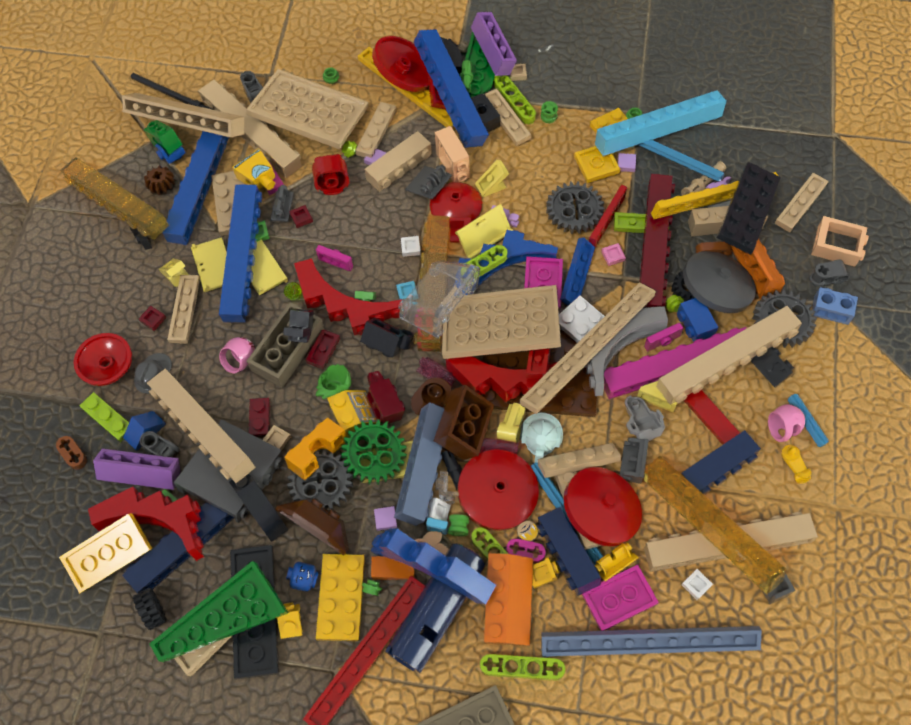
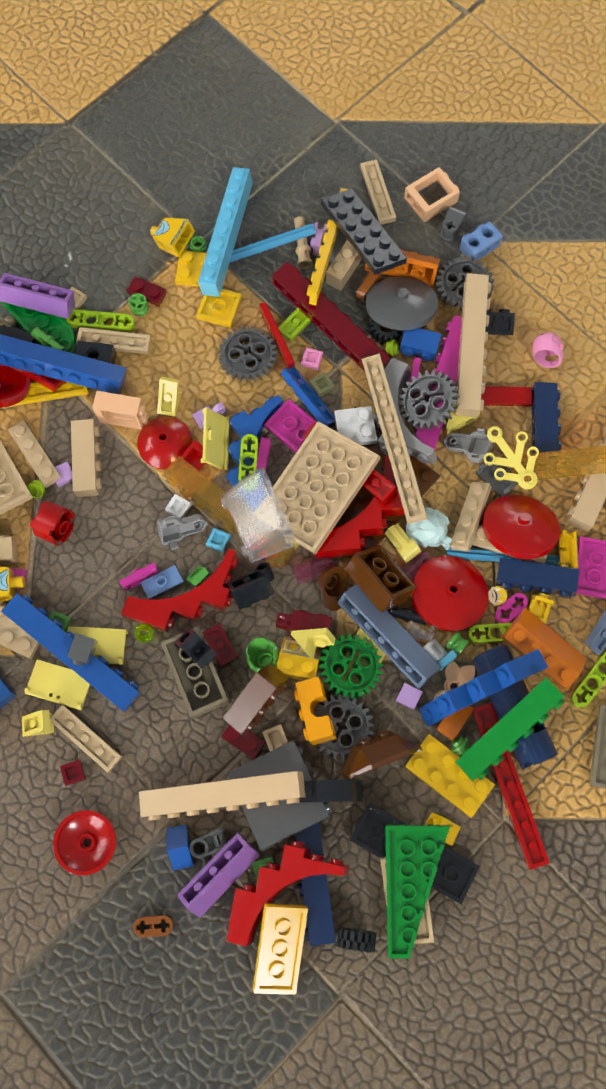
camera: 55 degrees left, 10 degrees up
(105, 416) = (140, 873): lime plate -> none
(150, 368) = (125, 805): dark grey piece -> none
(241, 350) = (171, 713): bright pink helmet -> none
(243, 252) = (82, 650): none -> dark grey brick
(282, 204) = (46, 585): dark grey hinge -> none
(293, 396) = (256, 698): none -> brick
(301, 216) = (72, 577): dark red plate -> none
(302, 576) = (414, 795): blue head -> none
(343, 277) = (162, 582): none -> medium blue plate
(370, 404) = (313, 638): none -> light yellow slope
(390, 255) = (174, 529): none -> light grey piece
(409, 609) = (511, 728): none -> green brick
(429, 181) = (127, 448): dark grey hinge -> none
(502, 273) = (264, 451): none -> dark pink beam
(566, 111) = (153, 293): none -> dark red plate
(596, 274) = (321, 384): none -> olive plate
(625, 93) = (173, 235): none -> yellow torso
(627, 162) = (236, 283): lavender tile -> none
(648, 354) = (429, 400): none -> dark grey gear
(654, 456) = (513, 460): none -> light yellow plant
(793, 459) = (574, 367): yellow piece -> none
(810, 423) = (567, 336): dark azure axle -> none

